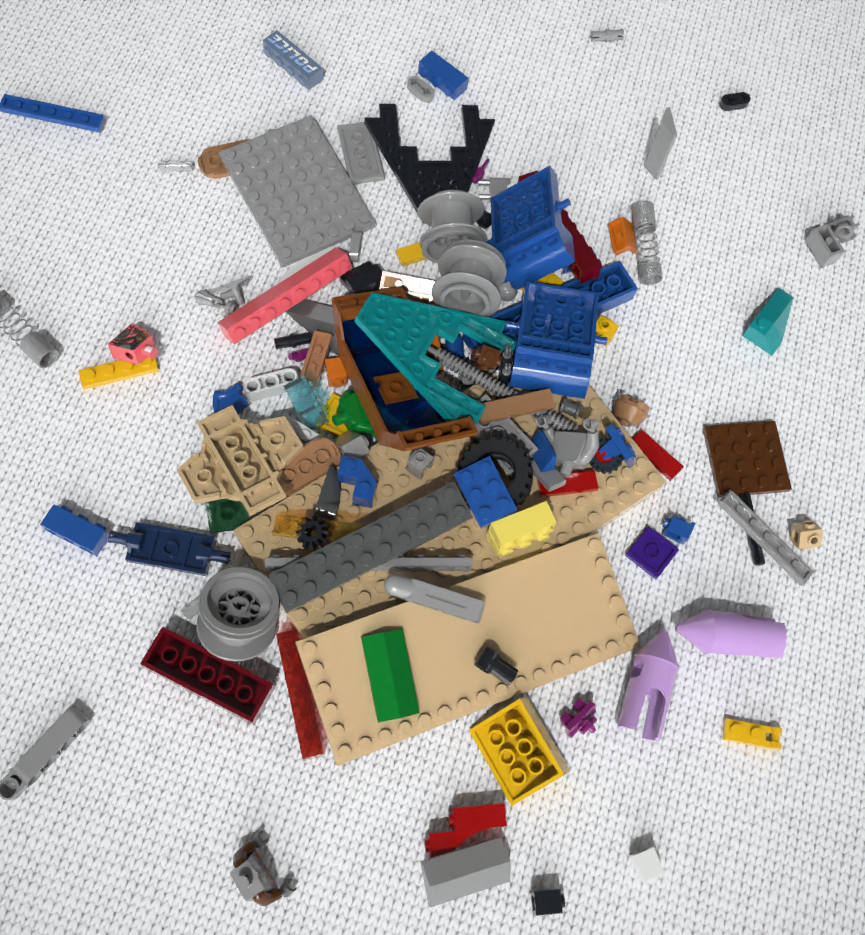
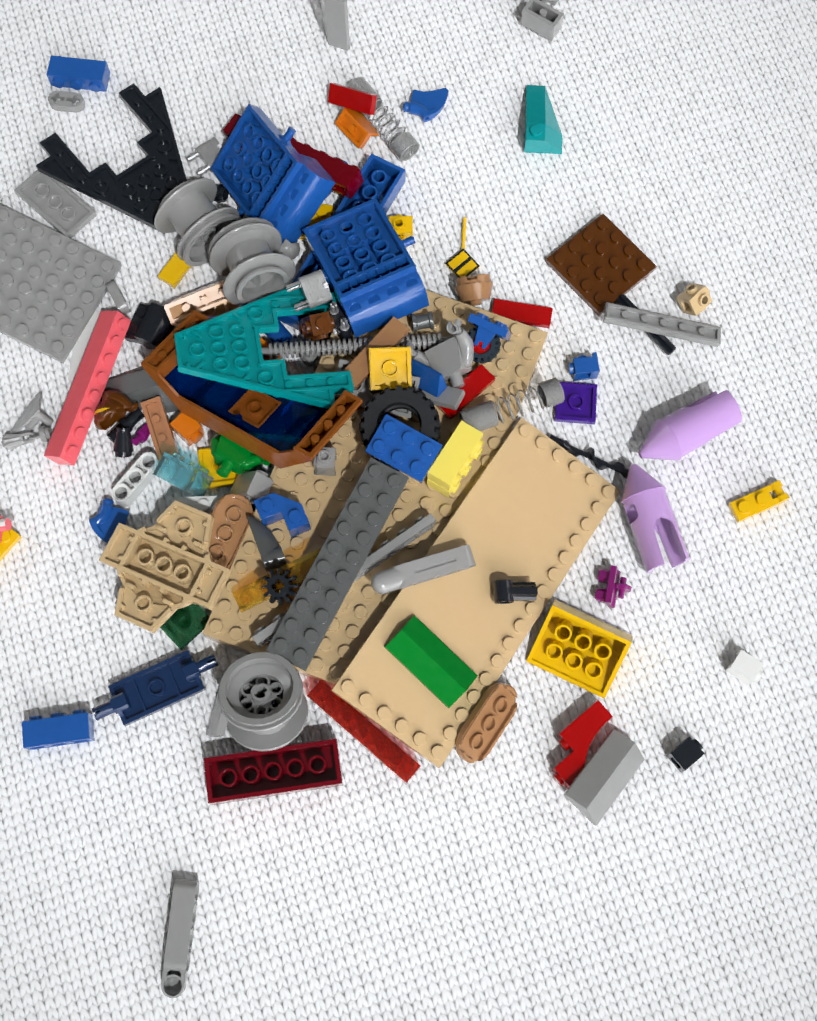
camera: 25 degrees left, 5 degrees up
(254, 878) = (436, 906): torso -> none
(281, 351) = (123, 443): none -> black cone
(291, 322) = (112, 409): none -> reddish brown hair
(401, 756) = (486, 722): none -> medium nougat tile
(480, 172) = (183, 149): magenta piece -> none
(502, 328) = (314, 290): none -> light grey piece
(519, 424) = (389, 367): none -> yellow tile
(569, 510) = (485, 416): none -> light grey piece
(633, 213) = (352, 98): none -> red tile
(635, 386) = (462, 263): none -> piece
(635, 599) = (590, 454): none -> black piece
(689, 253) = (426, 103): none -> blue arm

